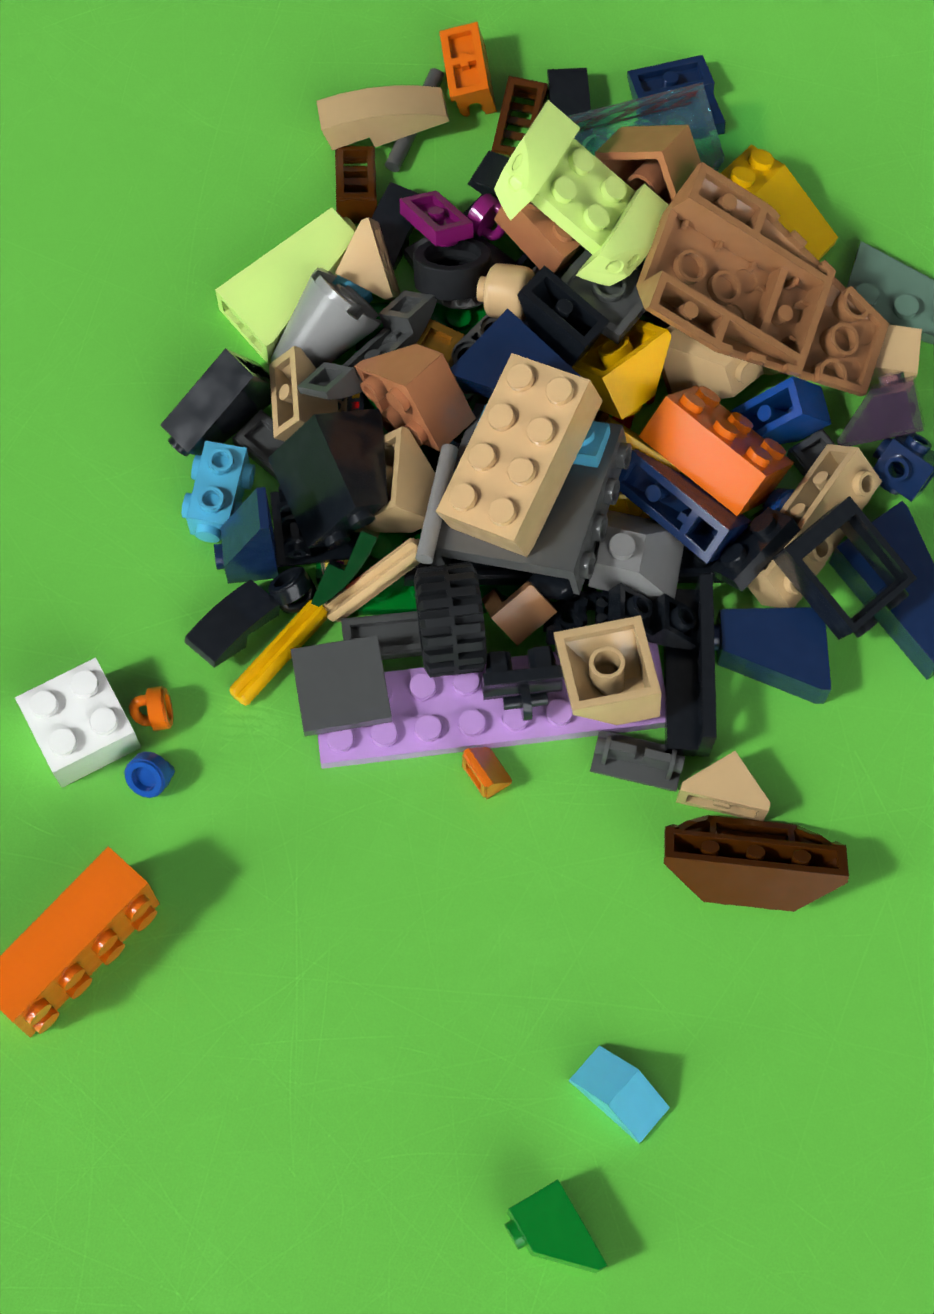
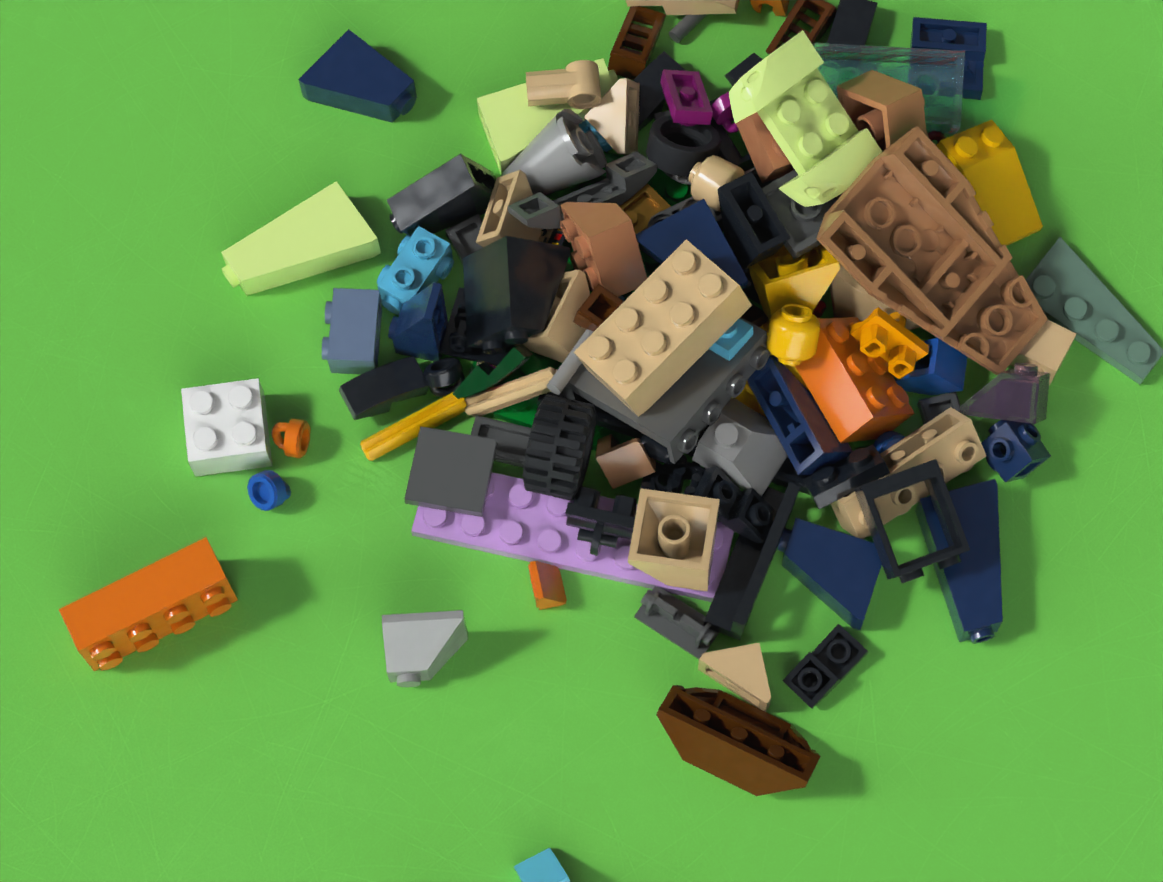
camera: 25 degrees right, 0 degrees up
(80, 313) = (359, 81): none -> dark blue slope
(84, 500) = (301, 243): none -> yellowish green slope
(177, 574) = (354, 330): none -> sand blue brick
(314, 242) = (574, 85): none -> tan piece
(380, 879) = (421, 644): none -> light grey slope
(439, 460) = (597, 308): none -> reddish brown slope
(651, 419) = (793, 334): none -> yellow head
(747, 395) = (888, 338): none -> light orange hips
(806, 751) = (826, 666): none -> black slope

